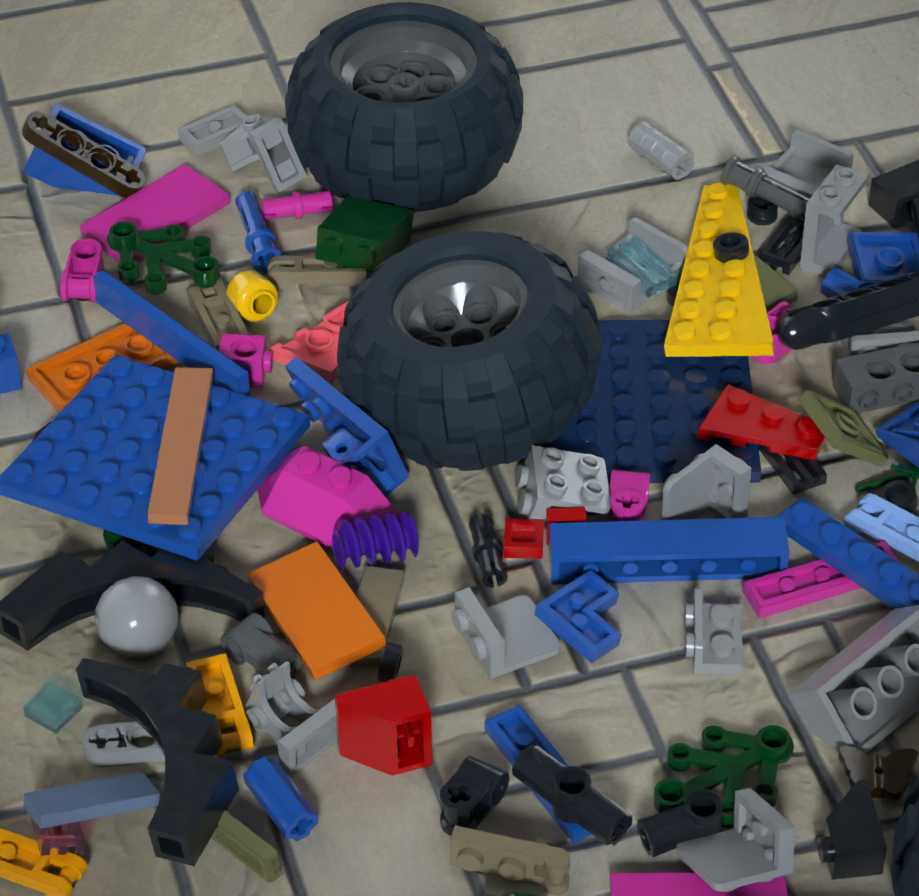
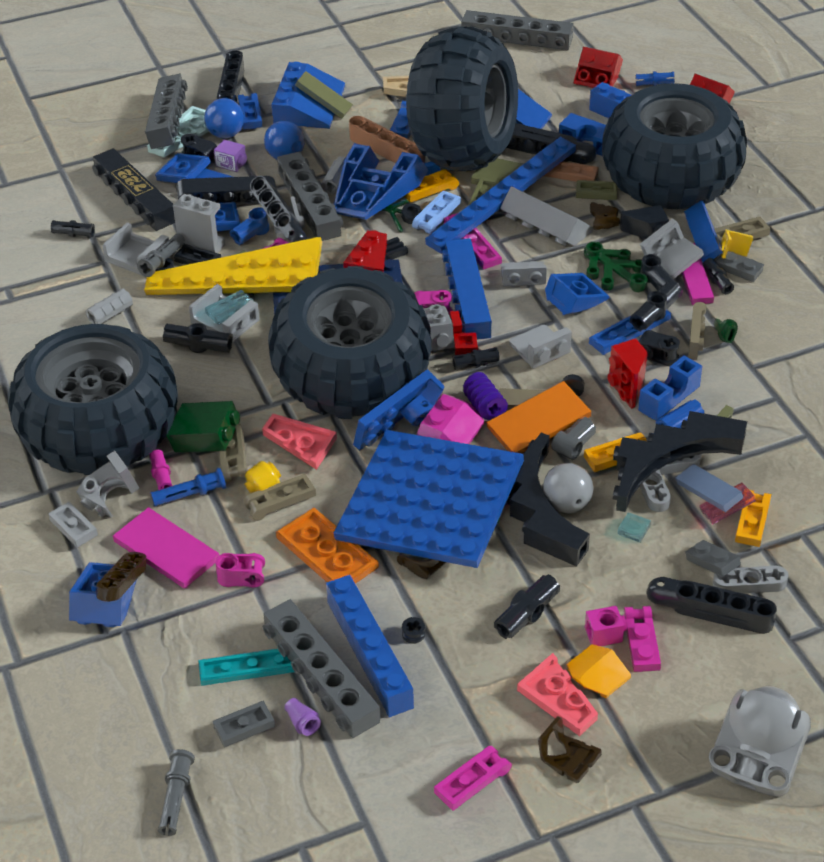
camera: 95 degrees left, 0 degrees up
(126, 238) = (210, 546): dark green plant -> none
(168, 333) = (313, 506): blue tile -> none
(180, 446) = (435, 470): nougat tile -> none
(250, 354) = (326, 476): dark pink brick -> none
(277, 698) = (622, 421): light grey tile -> none
(363, 805) = (659, 397): none -> blue arch
(575, 615) = (521, 320): blue plate -> none
(578, 228) = (197, 337): none -> black piece
(639, 697) = (573, 292): none -> blue slope
(711, 483) = (428, 269): light grey bracket -> none
(730, 247) = (223, 263): black tile -> none
(843, 428) = (370, 224): olive tile -> none
(862, 112) = (72, 228): none -> black pin

